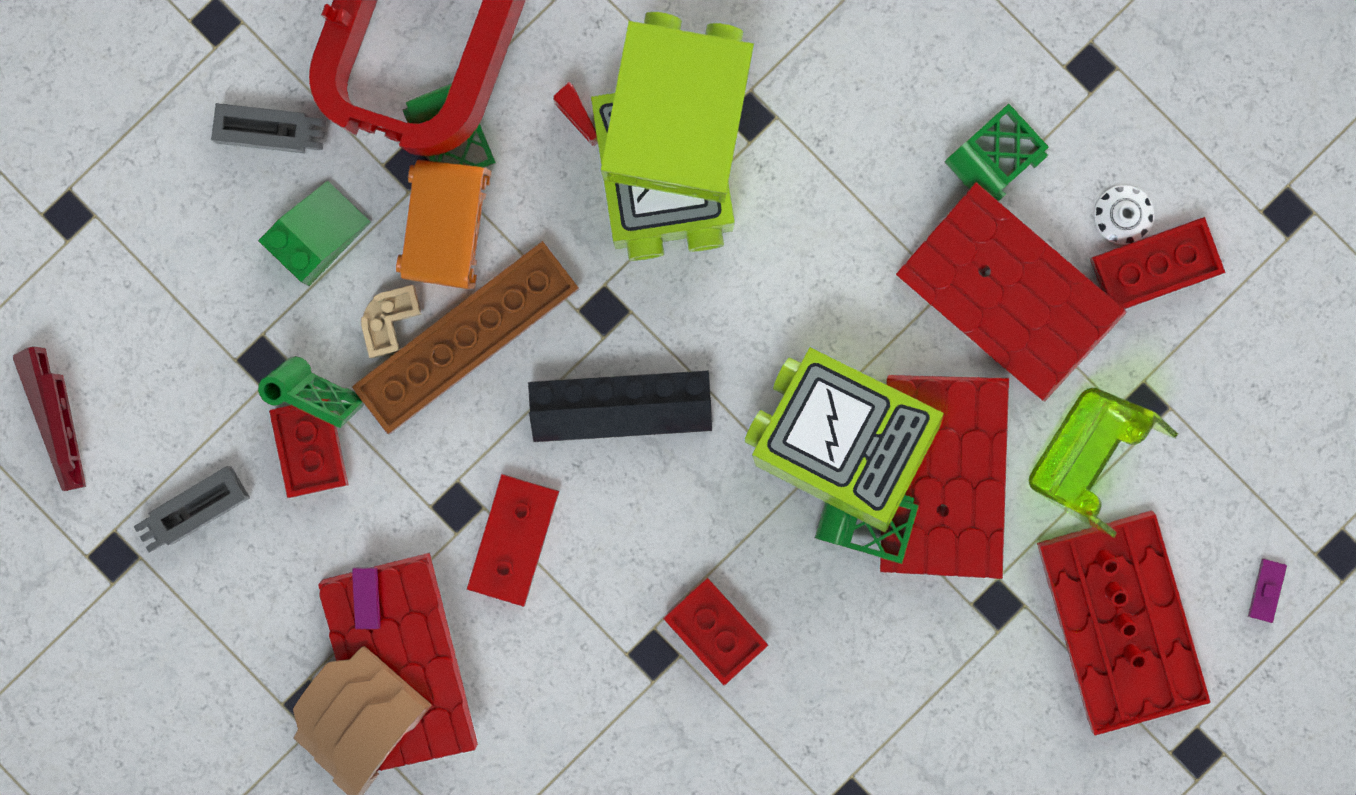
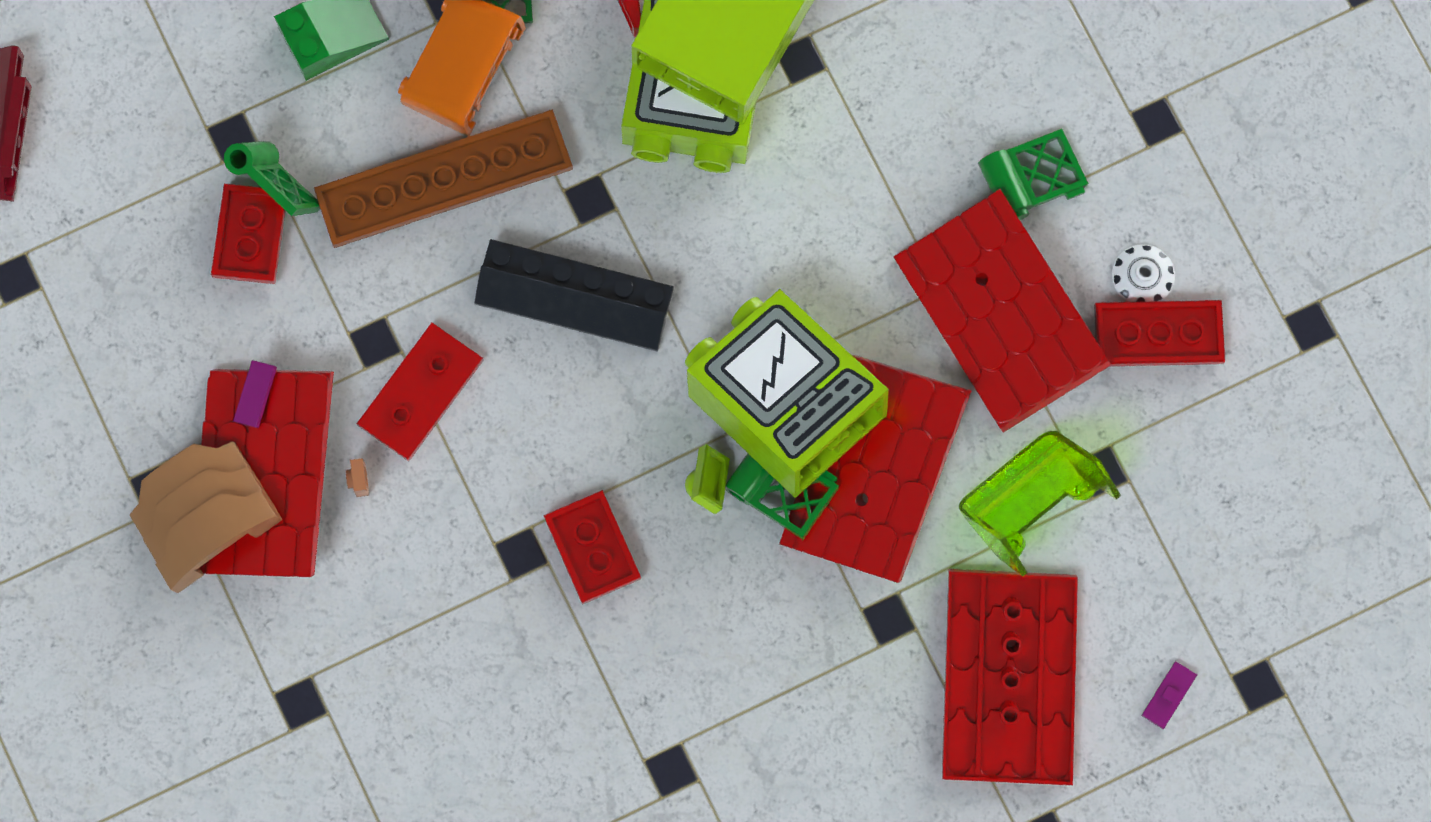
camera: 10 degrees right, 10 degrees down
(204, 504) = (125, 255): dark grey hinge -> none
(380, 315) = (366, 129): tan plate -> none
(485, 639) = (357, 478): none -> nougat plate
(799, 537) = (708, 481): none -> lime tile

